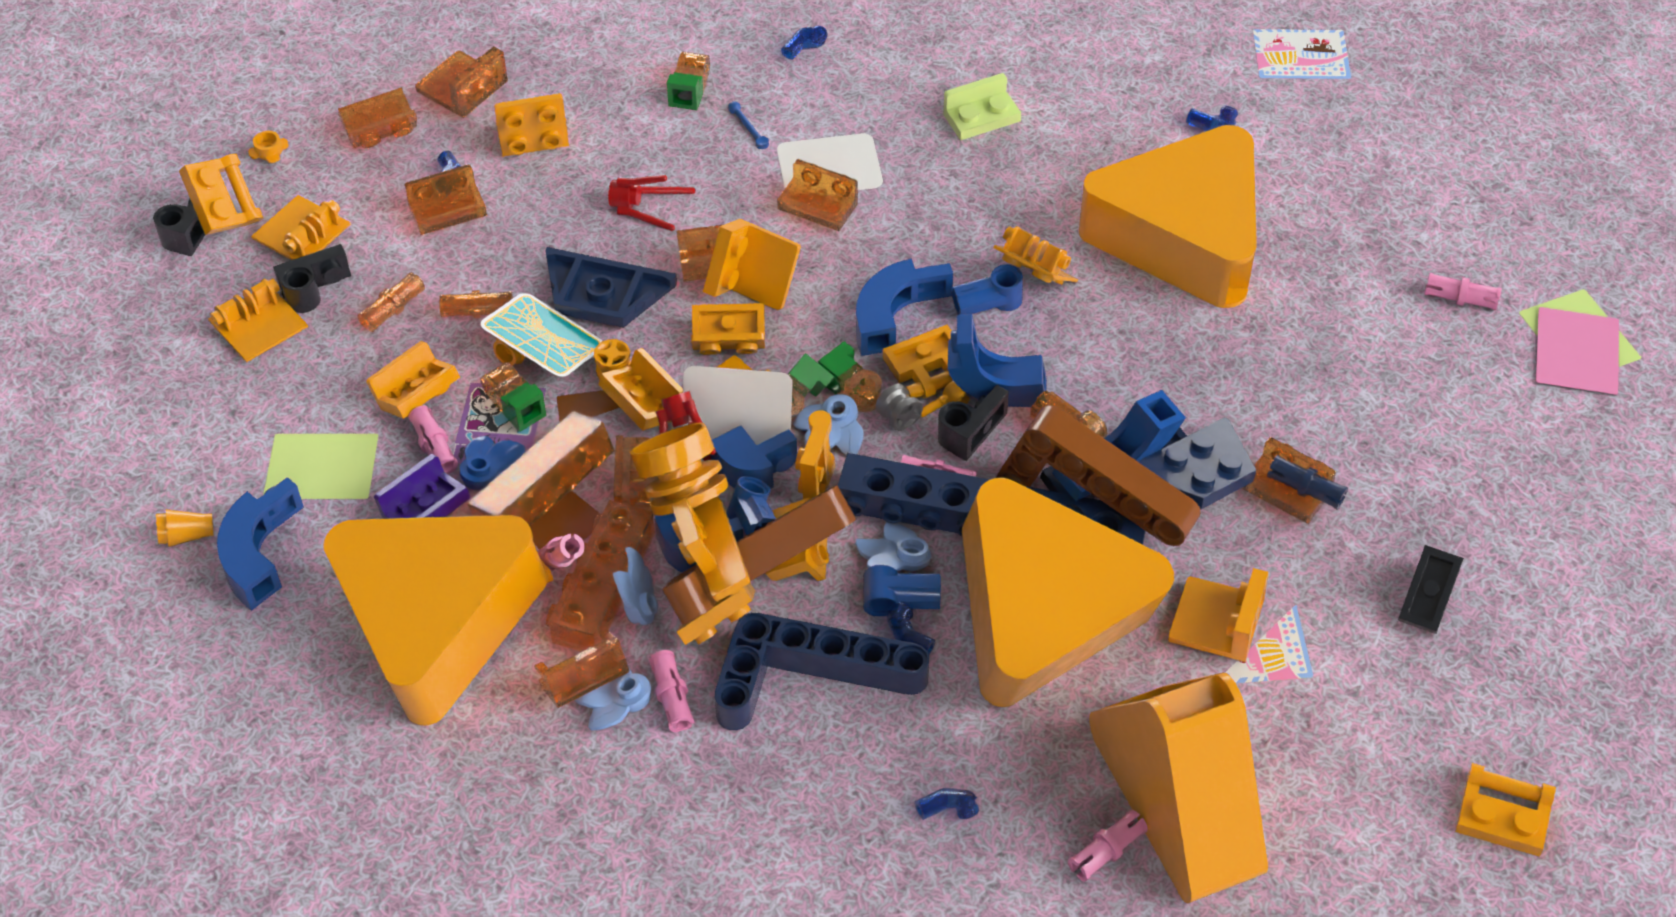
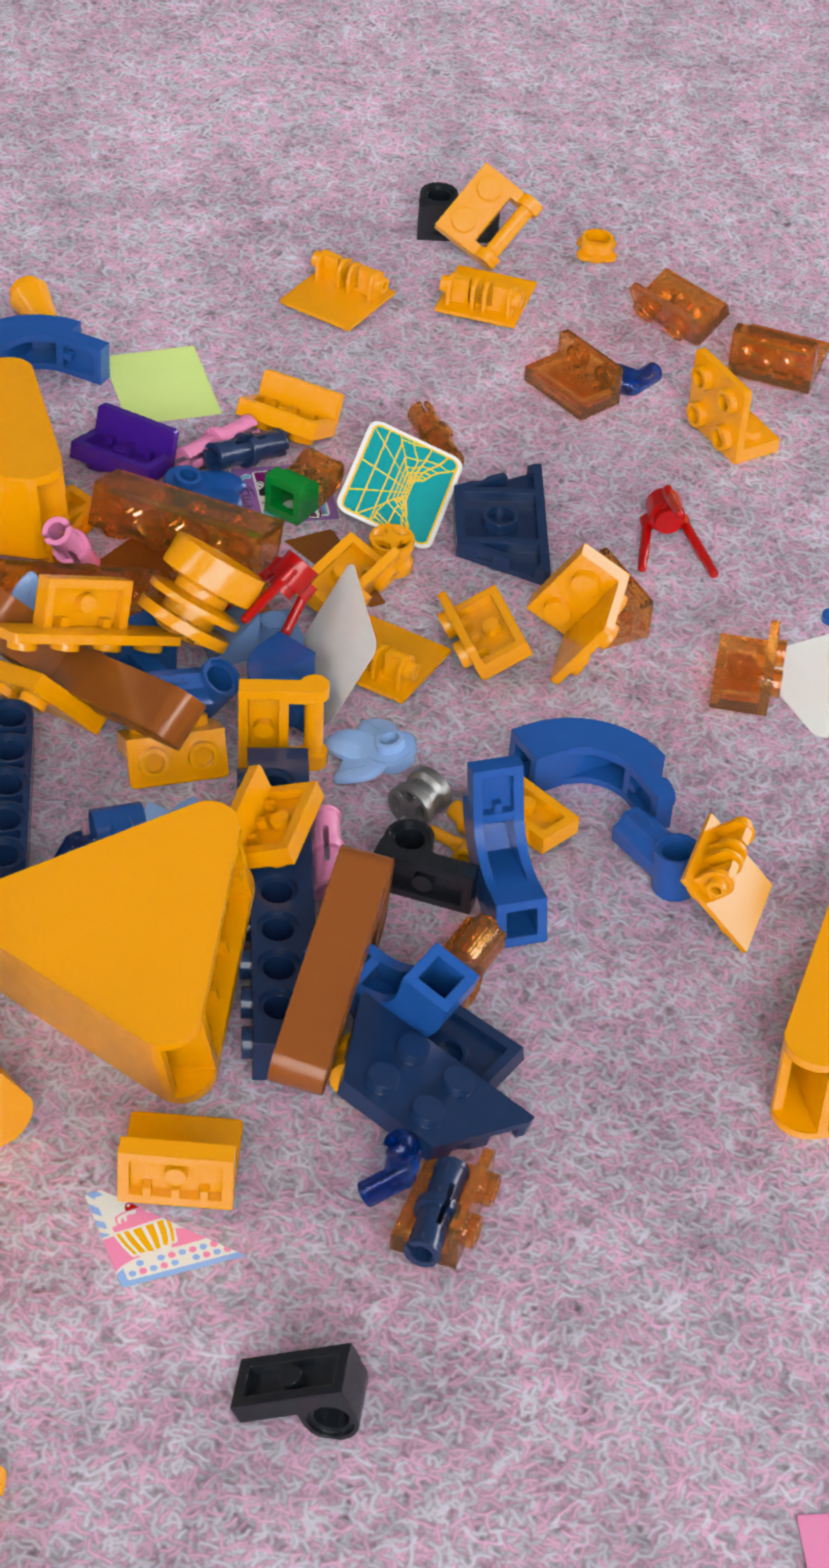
camera: 70 degrees right, 10 degrees down
(303, 276) = (405, 306): black plate -> none
(391, 301) = (409, 377): clear orange pin -> none
(454, 421) = (246, 449): none -> dark blue pin
(807, 378) = (405, 698): green leg -> none
(851, 378) = (454, 741): leg -> none
(942, 481) = (274, 818): none -> light orange bracket
(1260, 497) = (400, 1168): none -> clear blue arm

